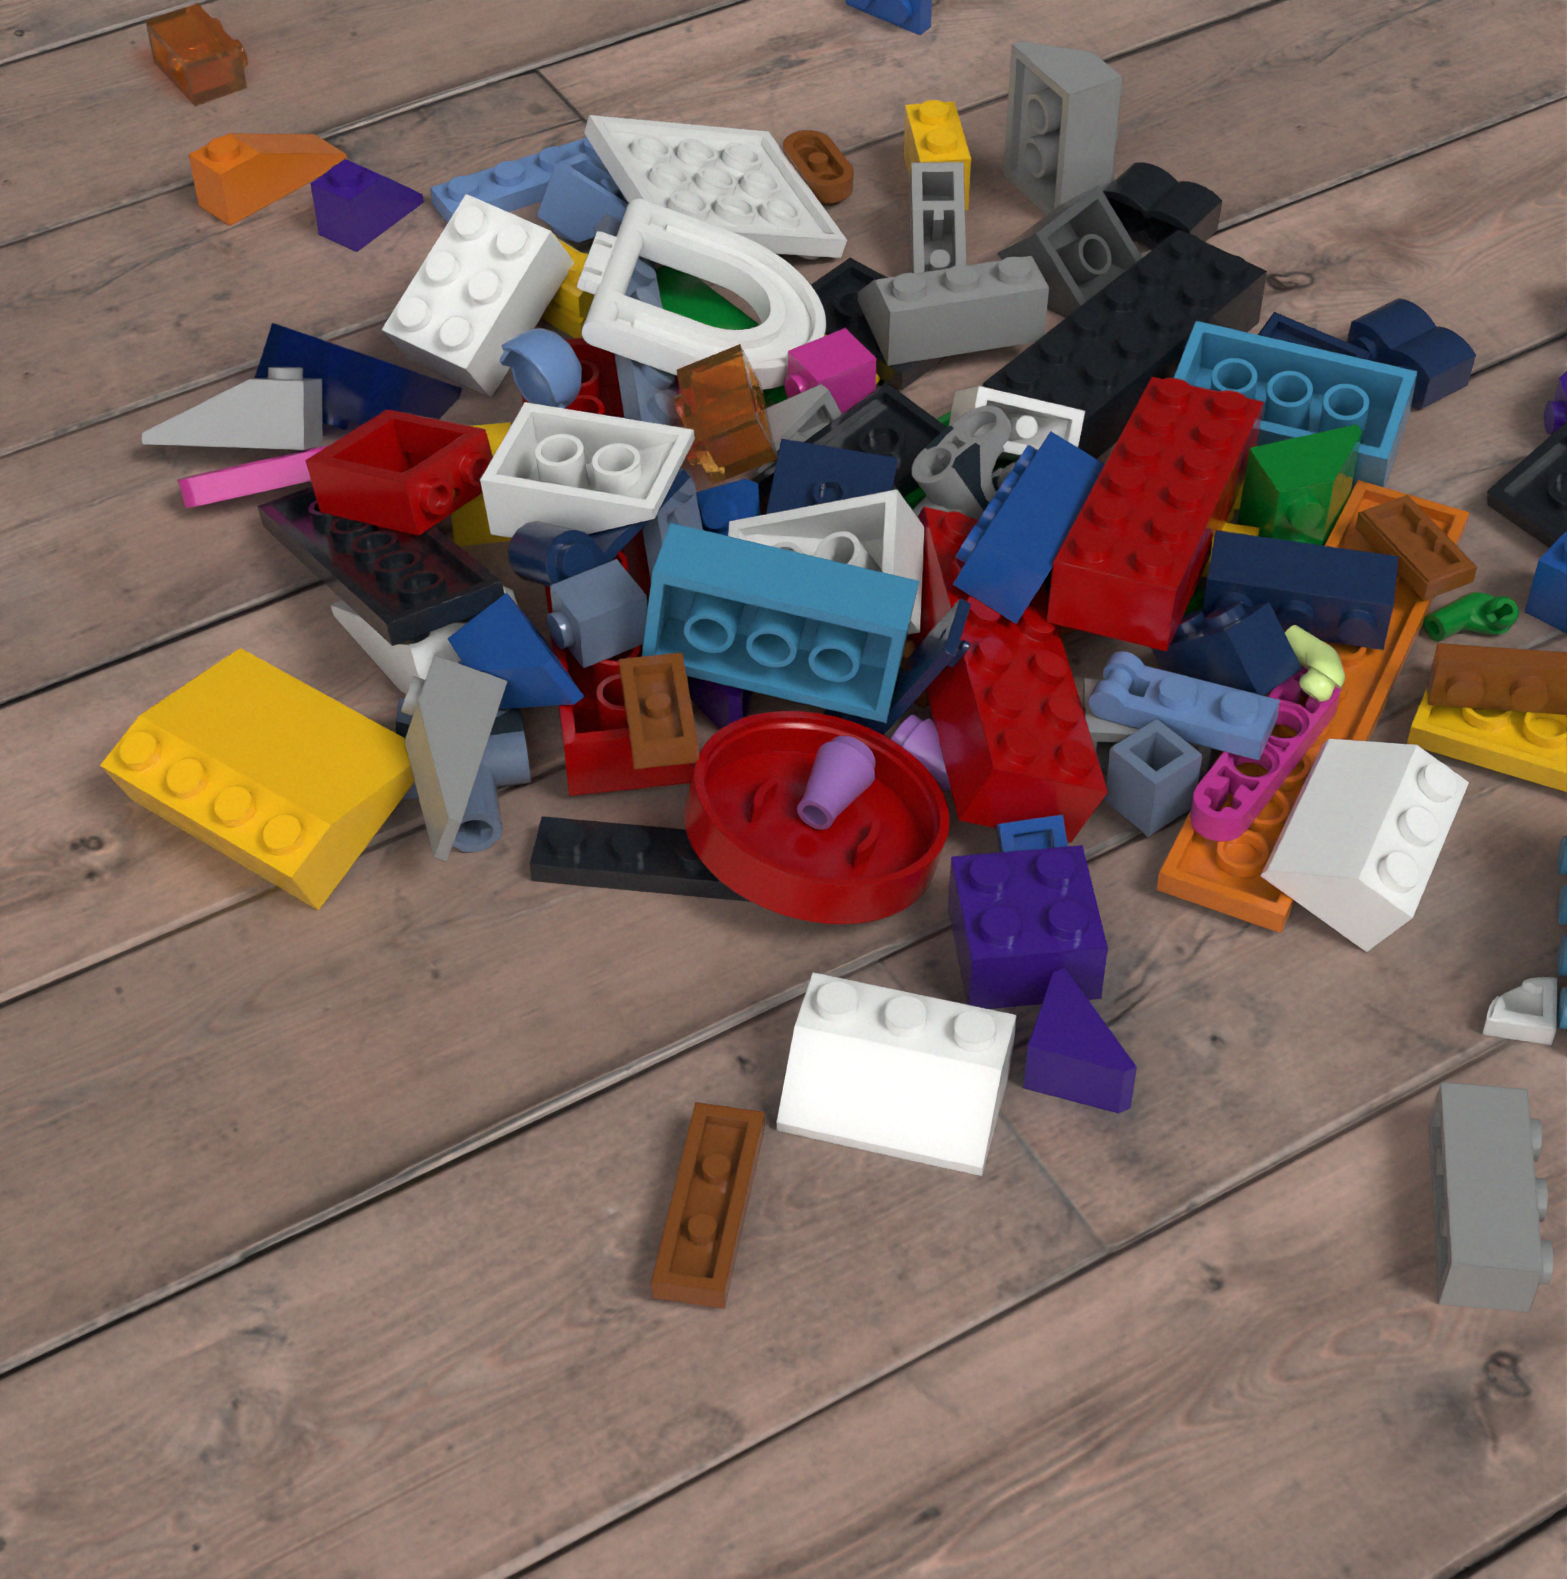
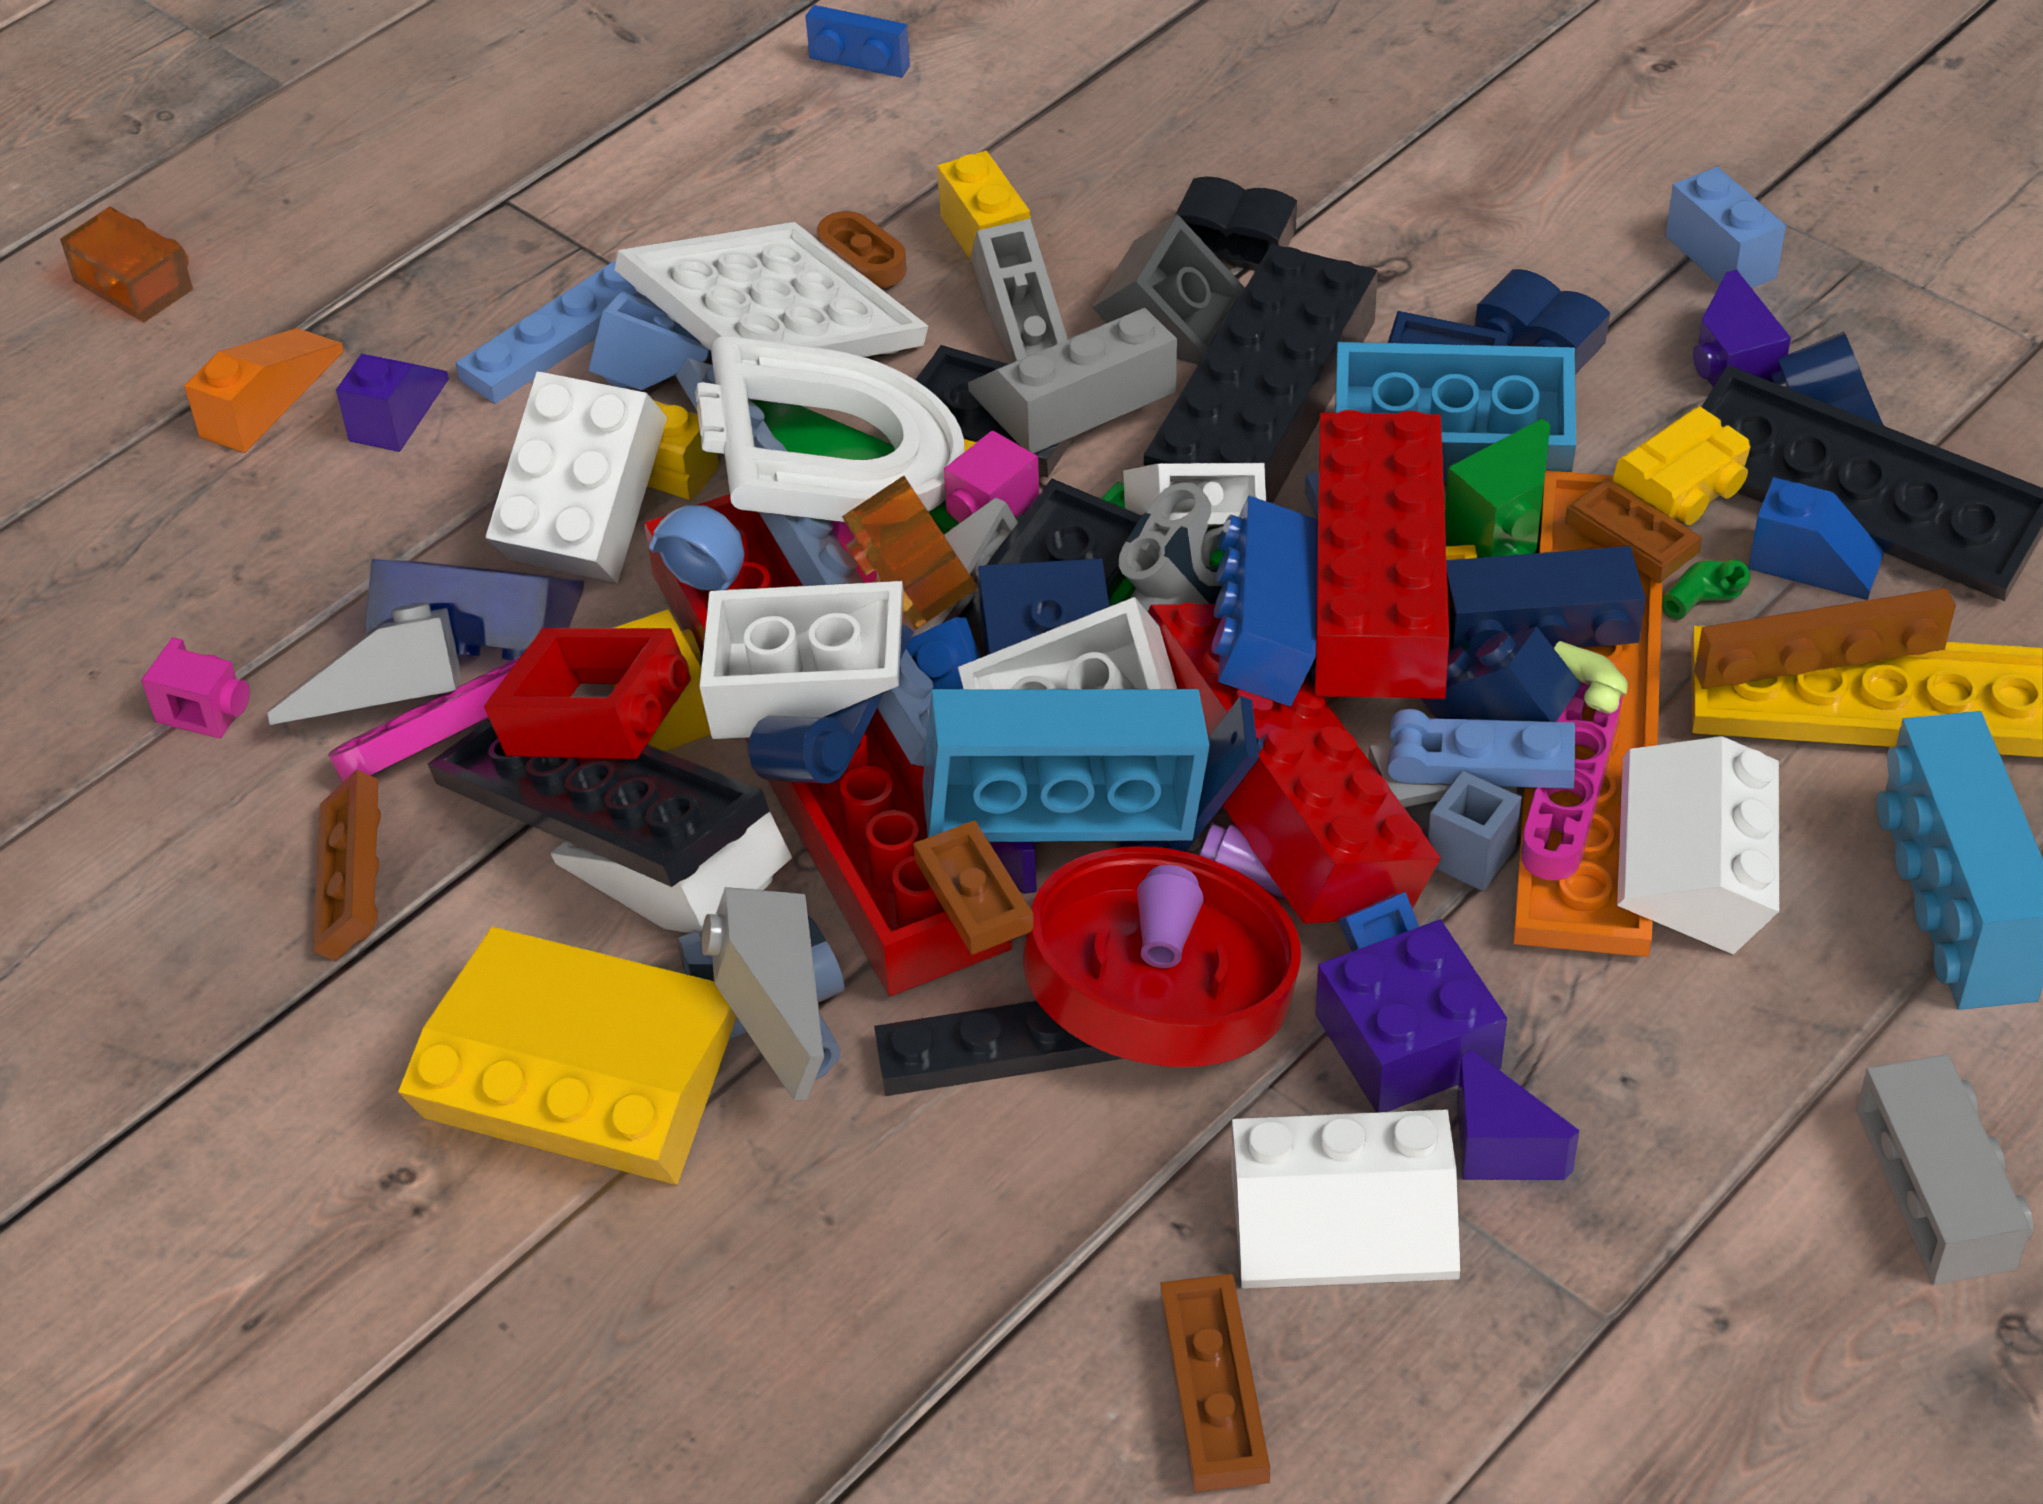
camera: 15 degrees left, 0 degrees up
(94, 403) = (194, 690): none -> dark pink brick
(155, 575) = (346, 866): none -> dark orange plate
(512, 648) = (791, 858): blue slope -> none
(598, 613) = (870, 799): sand blue brick -> none
(1060, 123) = (1111, 157): light grey slope -> none
(1487, 501) = (1686, 466): none -> yellow brick
(1525, 1012) = (1906, 976): white tile -> none

